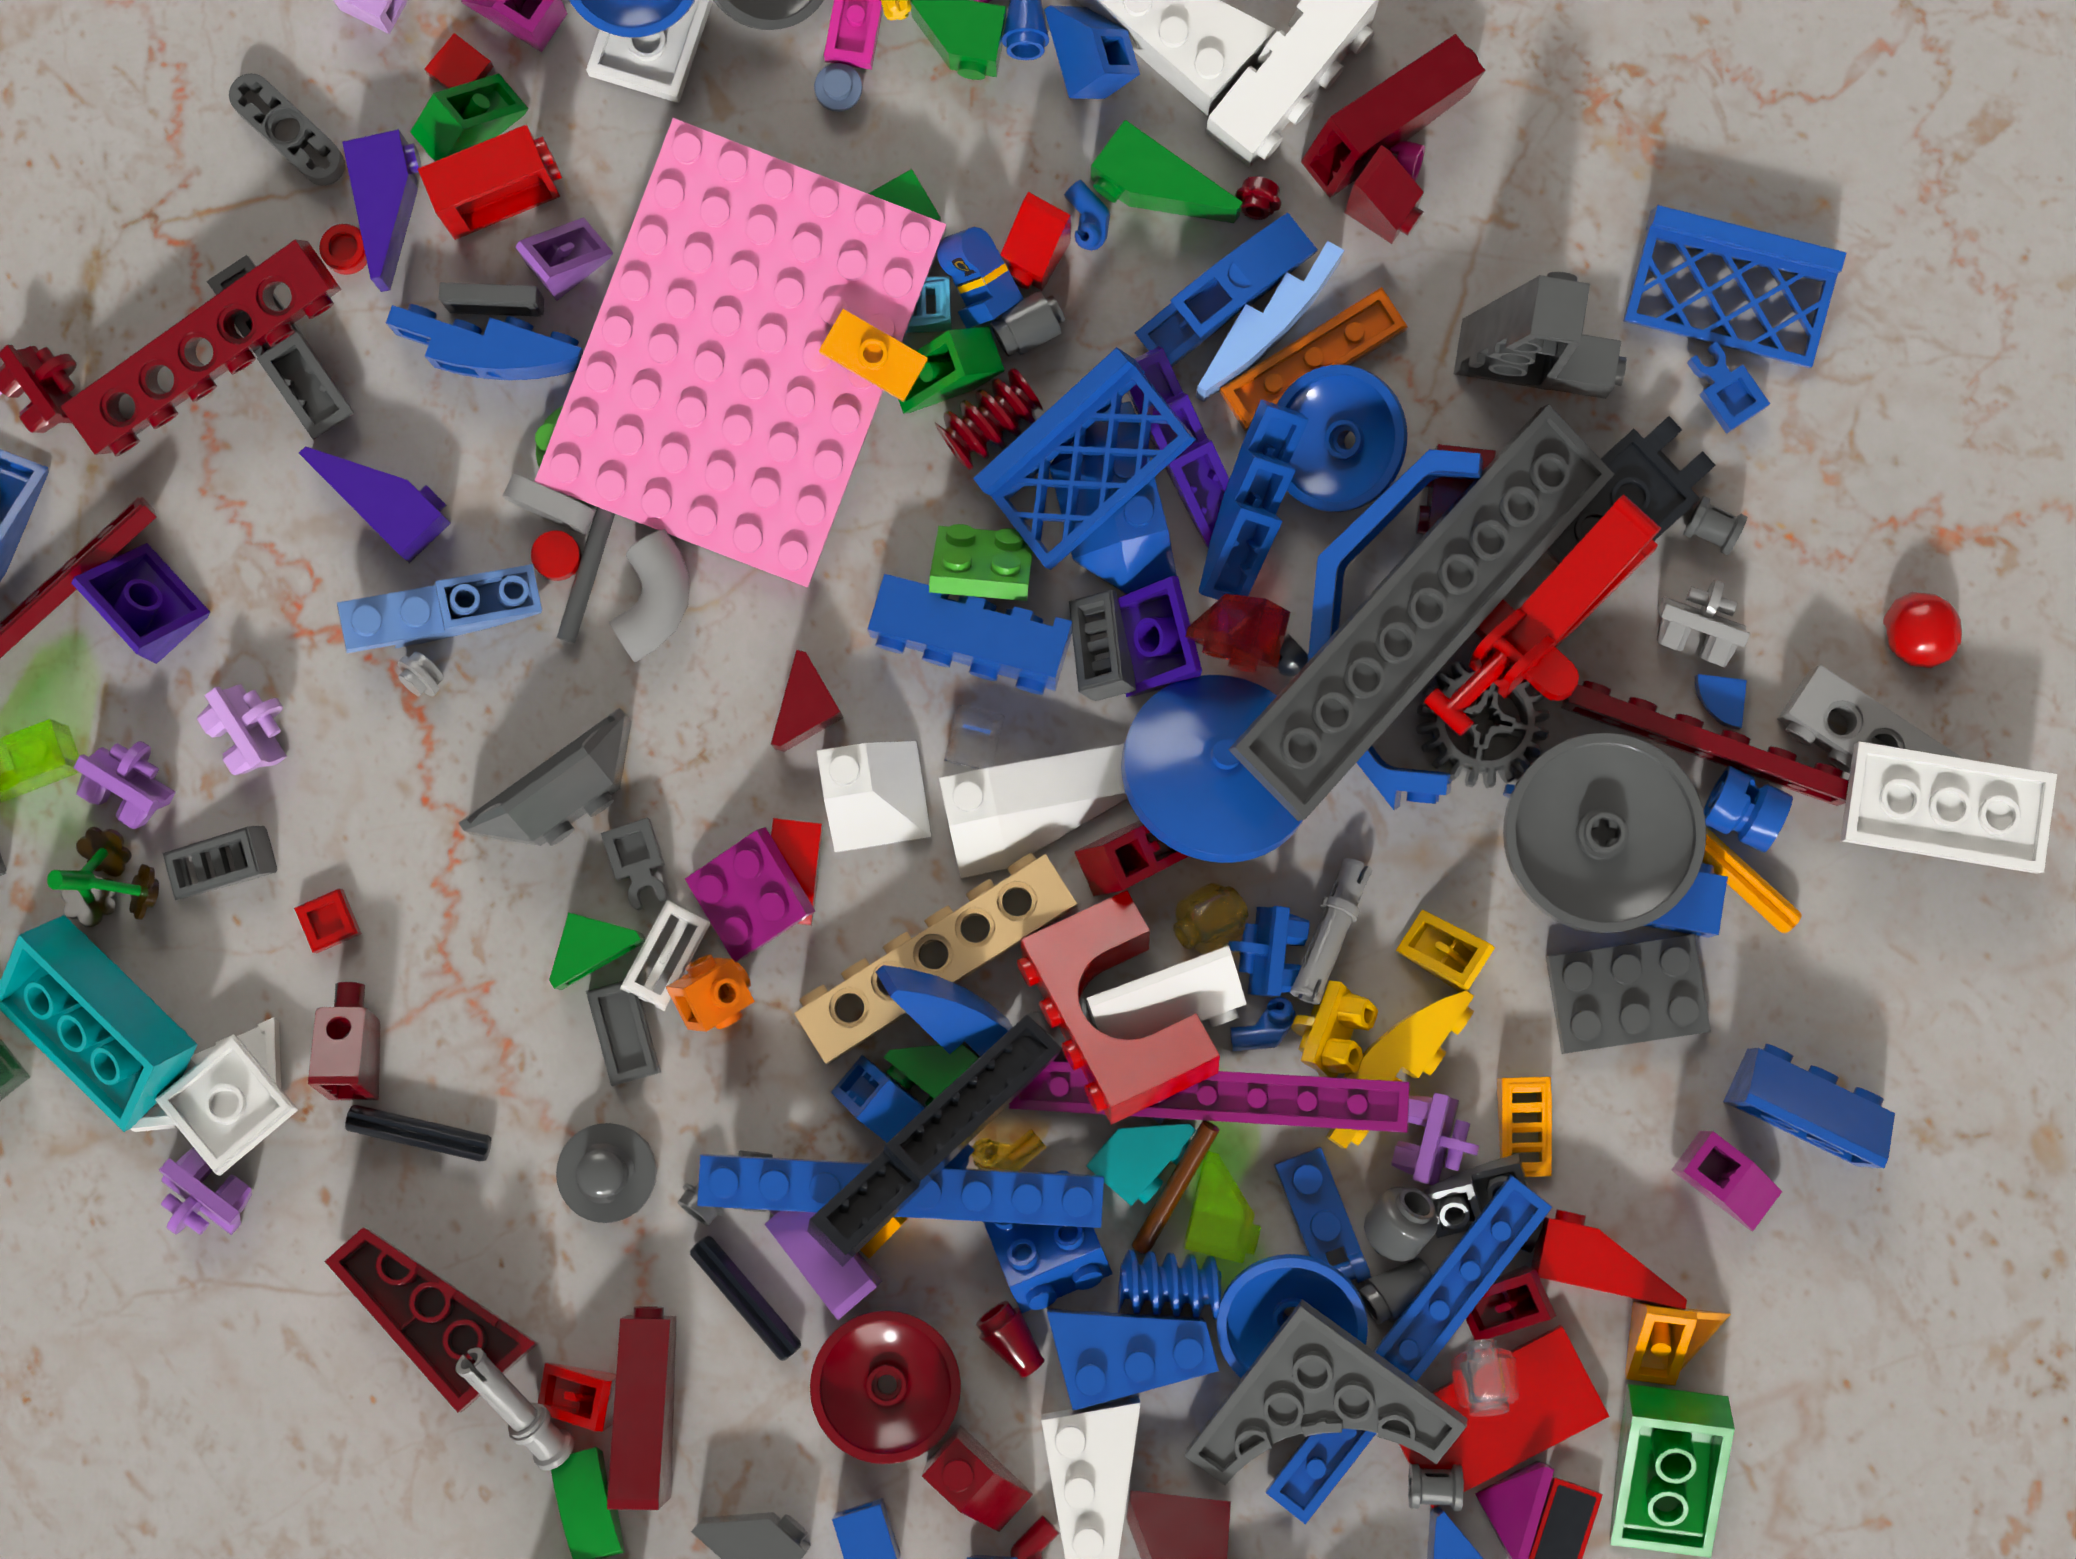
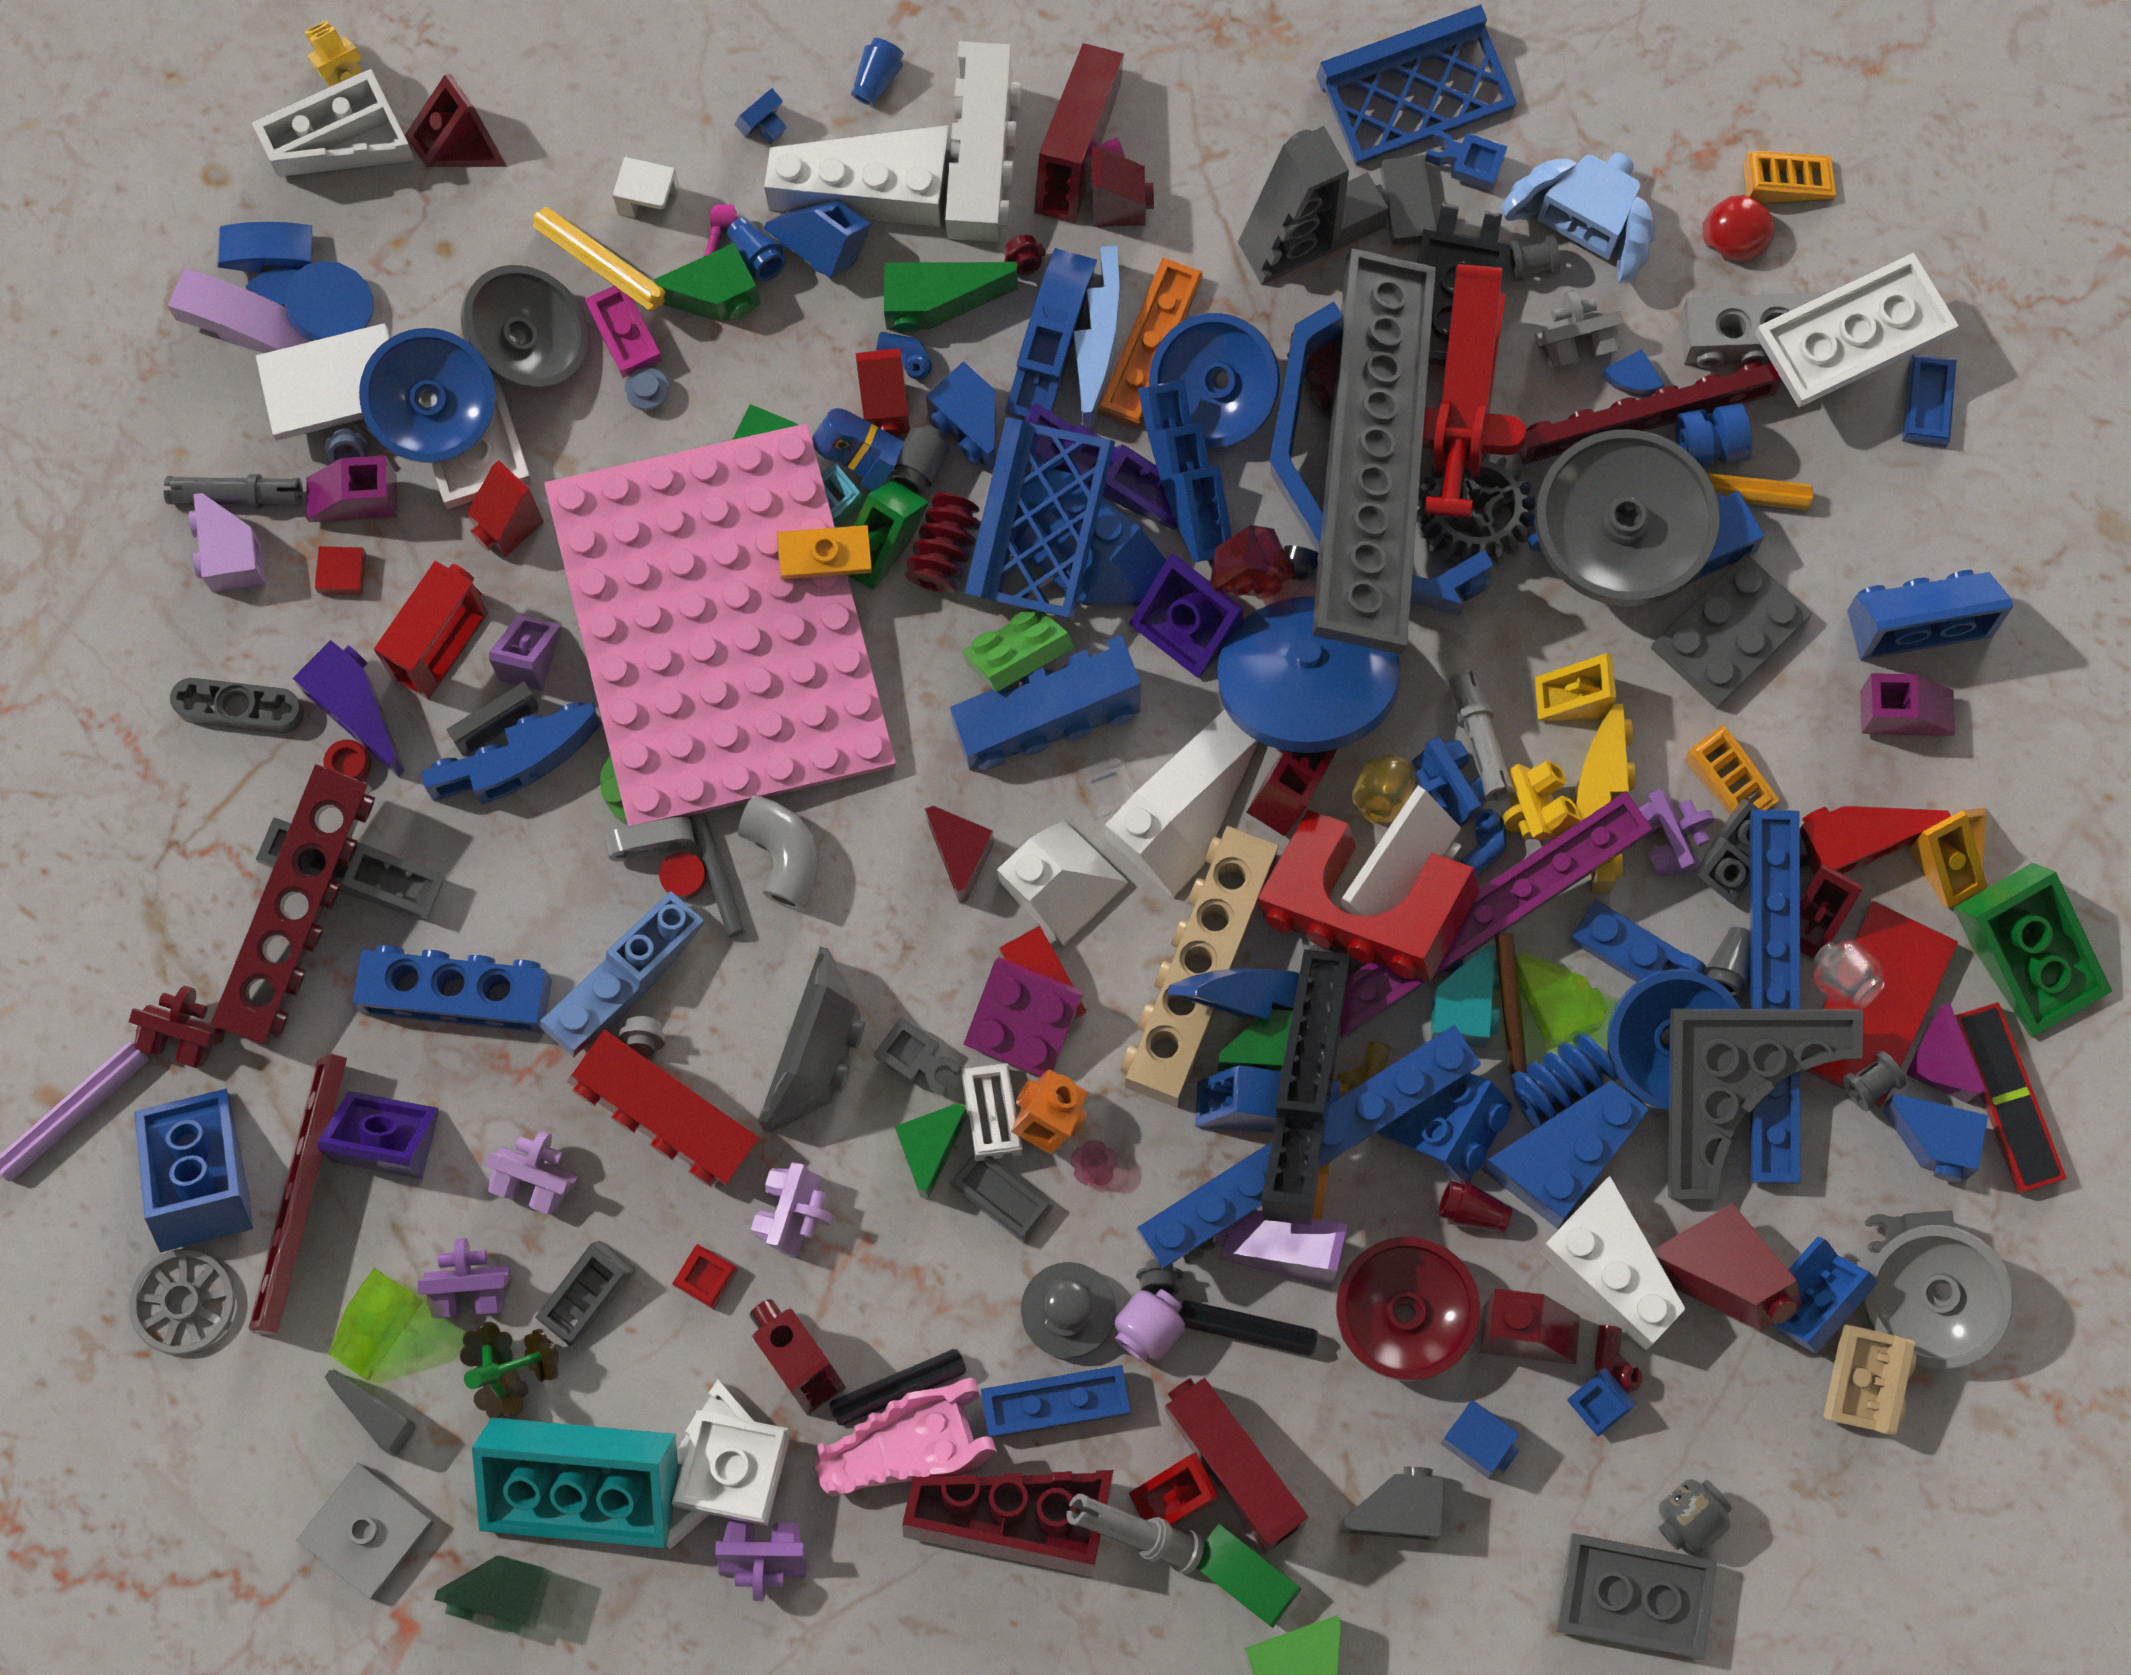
camera: 35 degrees left, 10 degrees down
(228, 474) = (520, 1010): none -> blue brick
(385, 753) = (662, 1109): none -> red wedge
(388, 503) = (520, 925): dark purple slope -> none
(392, 1191) = (912, 1438): none -> bright pink animal
(439, 922) = (797, 1209): none -> lavender hips
(467, 116) = (374, 599): green slope -> none
(537, 1243) = (1055, 1401): none -> blue plate
(628, 116) = (503, 511): none -> red slope
(661, 1238) = (1149, 1325): none -> lavender head
(707, 1066) = (1094, 1151): none -> clear pink plate
(1103, 311) = (966, 410): none -> blue slope
(1119, 663) = (1173, 669): dark grey slope -> none
(1401, 1223) = (1698, 909): dark grey head -> none
(1644, 387) = (1410, 198): none -> dark grey tile
(1803, 515) = (1589, 205): none -> light blue torso
(1971, 912) = (1929, 400): none -> blue tile
(1984, 619) = (1776, 192): none -> light orange slope

